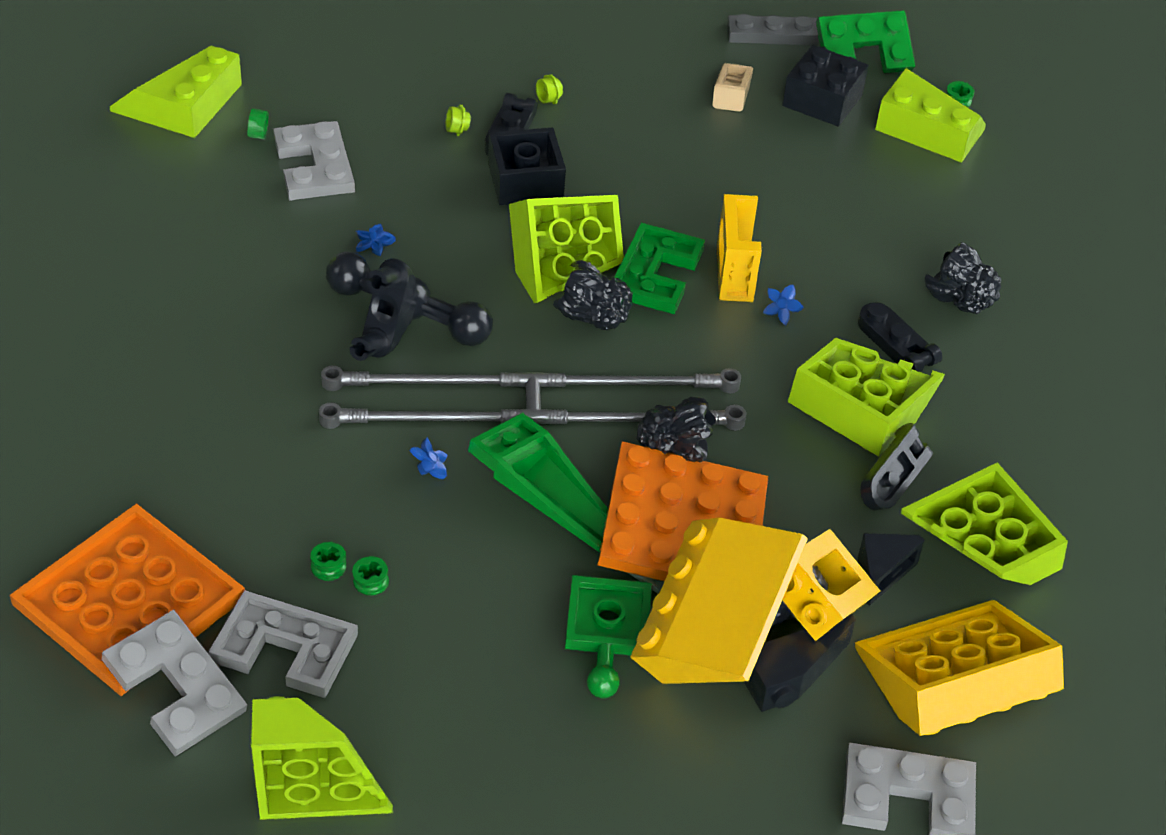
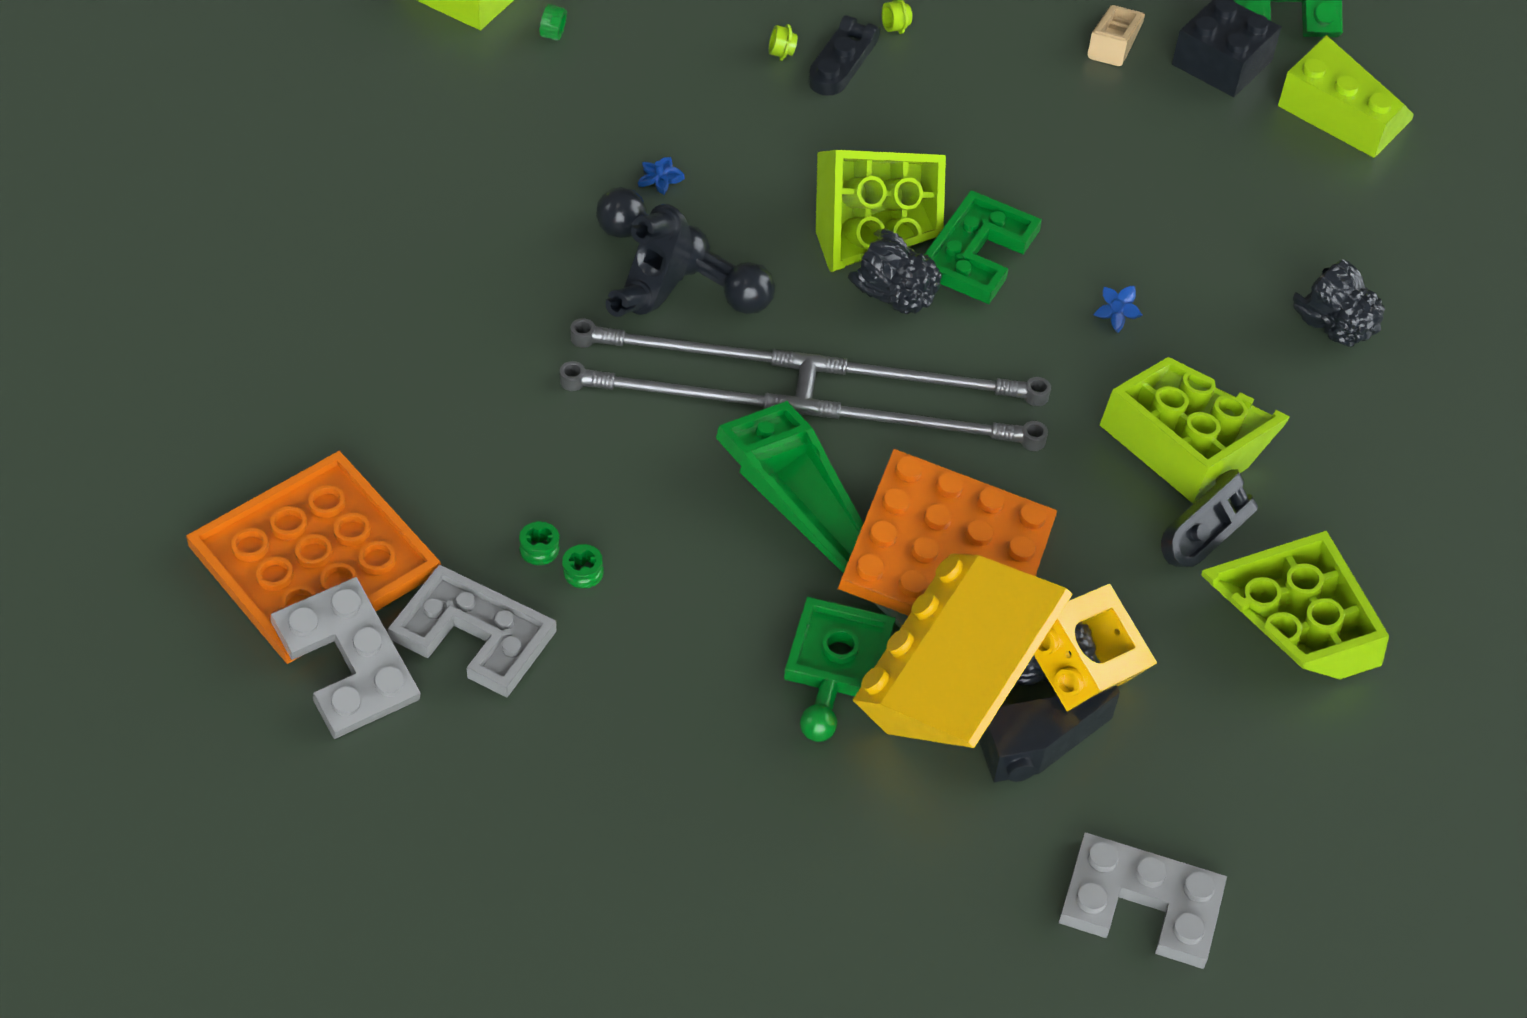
camera: 10 degrees right, 5 degrees up
(308, 765) = (465, 772): lime wedge -> none
(331, 166) = (627, 87): light grey plate -> none
(430, 460) = (674, 443): blue plant -> none
(526, 165) = (850, 107): black brick -> none
(678, 429) = (962, 443): black hair -> none
(736, 252) = (1077, 235): yellow panel -> none
(888, 558) = (1176, 626): black slope -> none
(897, 337) = (1247, 364): black plate -> none
(962, 666) = (1236, 763): yellow slope -> none
(963, 89) = (1393, 66): green bush -> none

